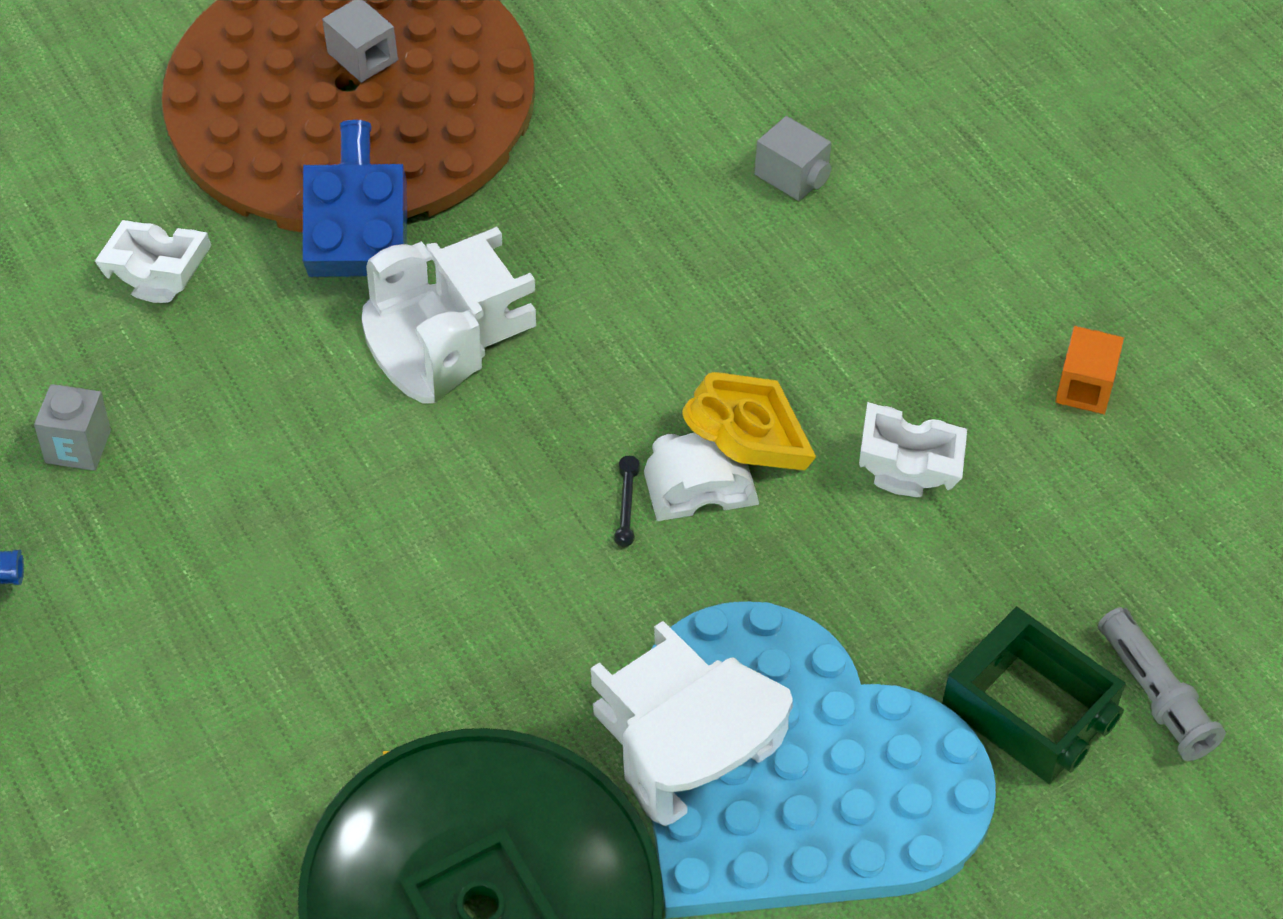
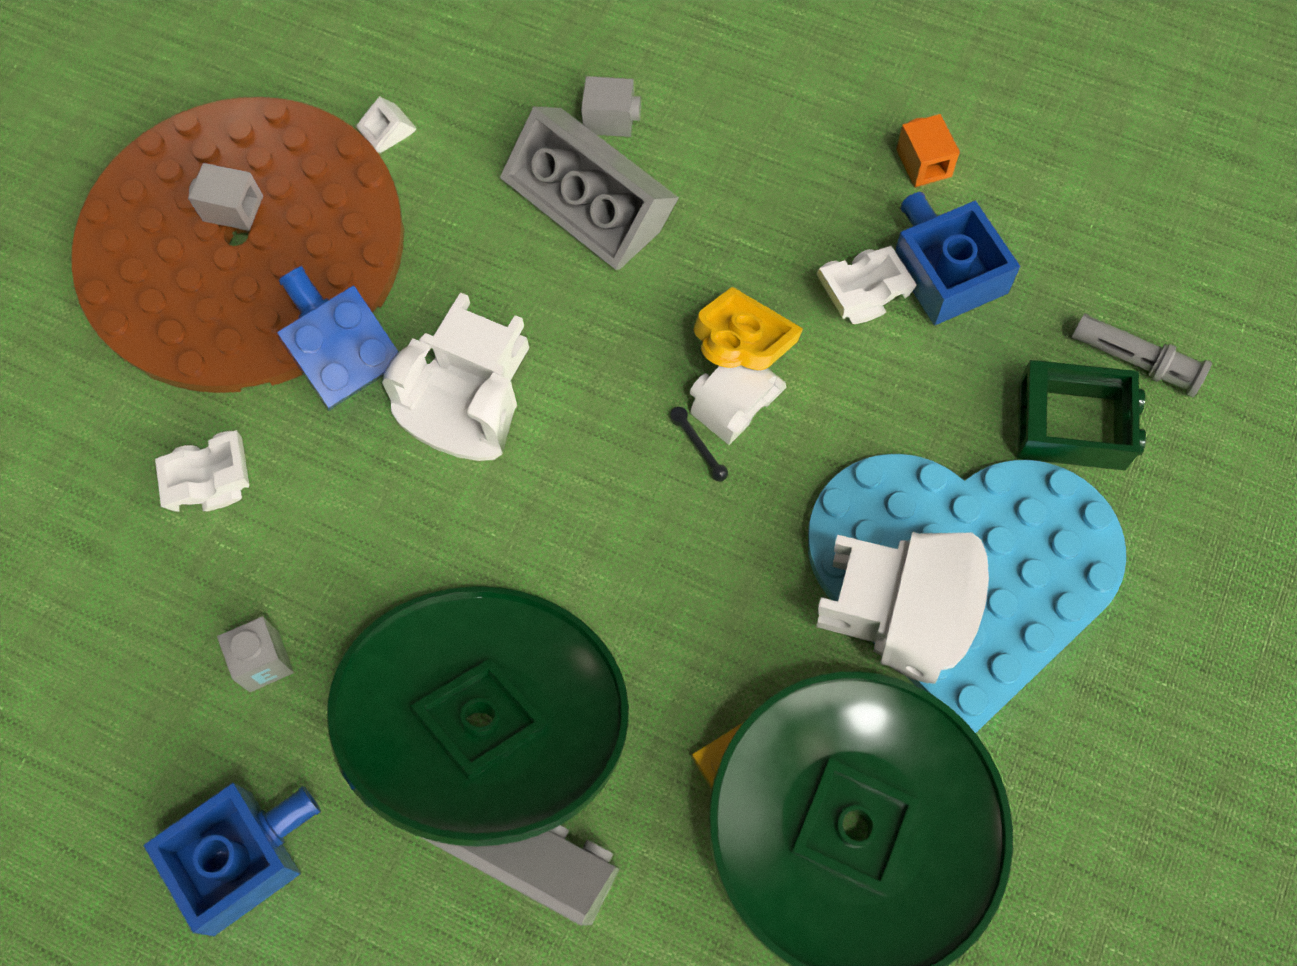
camera: 30 degrees left, 15 degrees up
(154, 713) = (548, 871): none -> light grey slope
(290, 571) = (464, 651): none -> dark green dish
(567, 65) = (385, 125): none -> white slope
(711, 216) = (587, 186): none -> light grey slope
(1021, 477) = (954, 258): none -> blue brick

